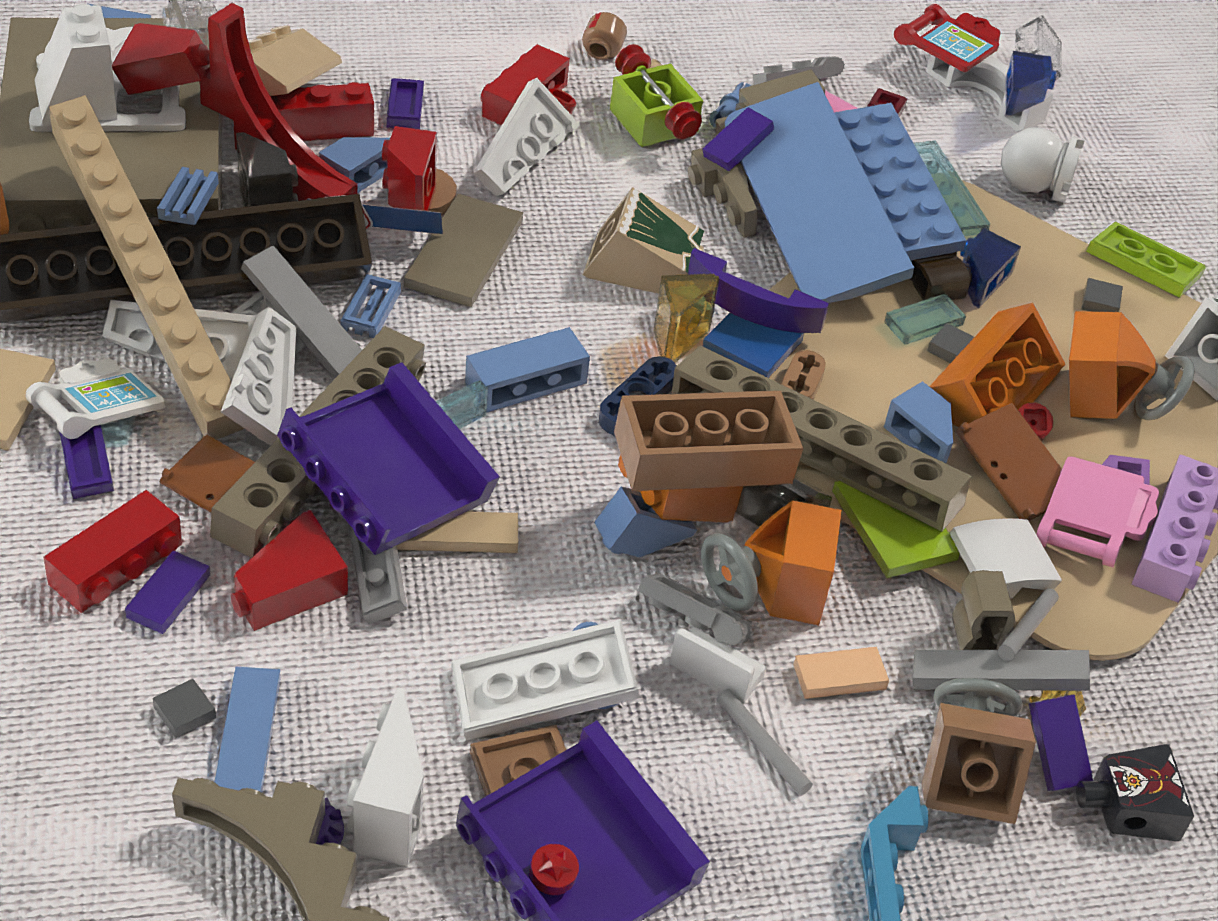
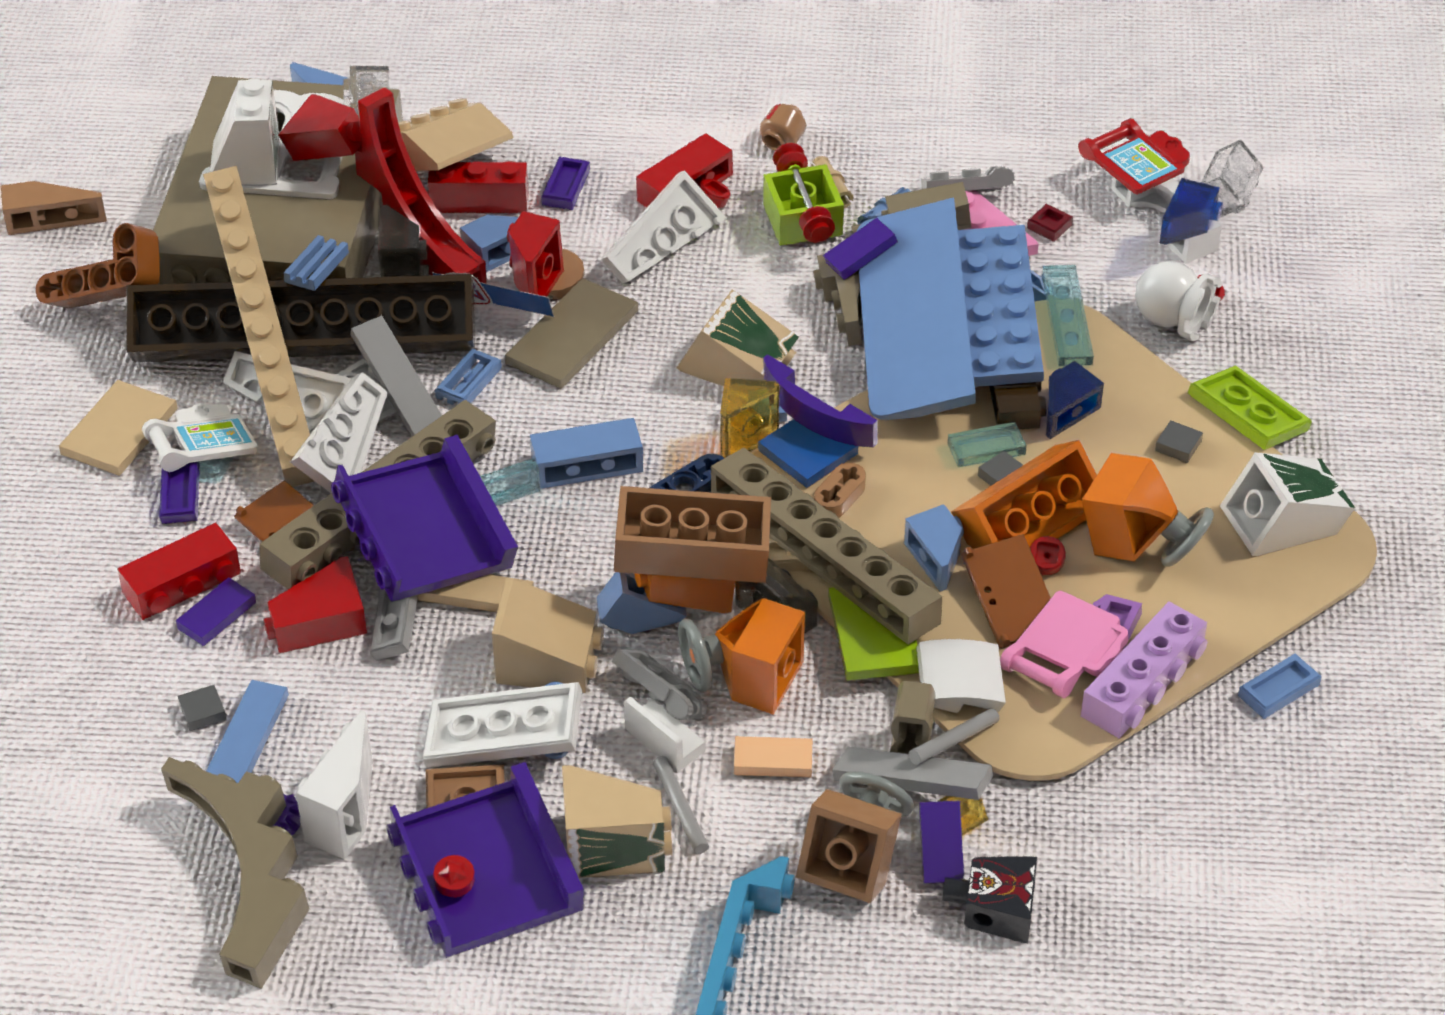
camera: 20 degrees right, 0 degrees up
(558, 576) = (543, 638): none -> tan slope
(714, 775) = (614, 825): none -> tan slope

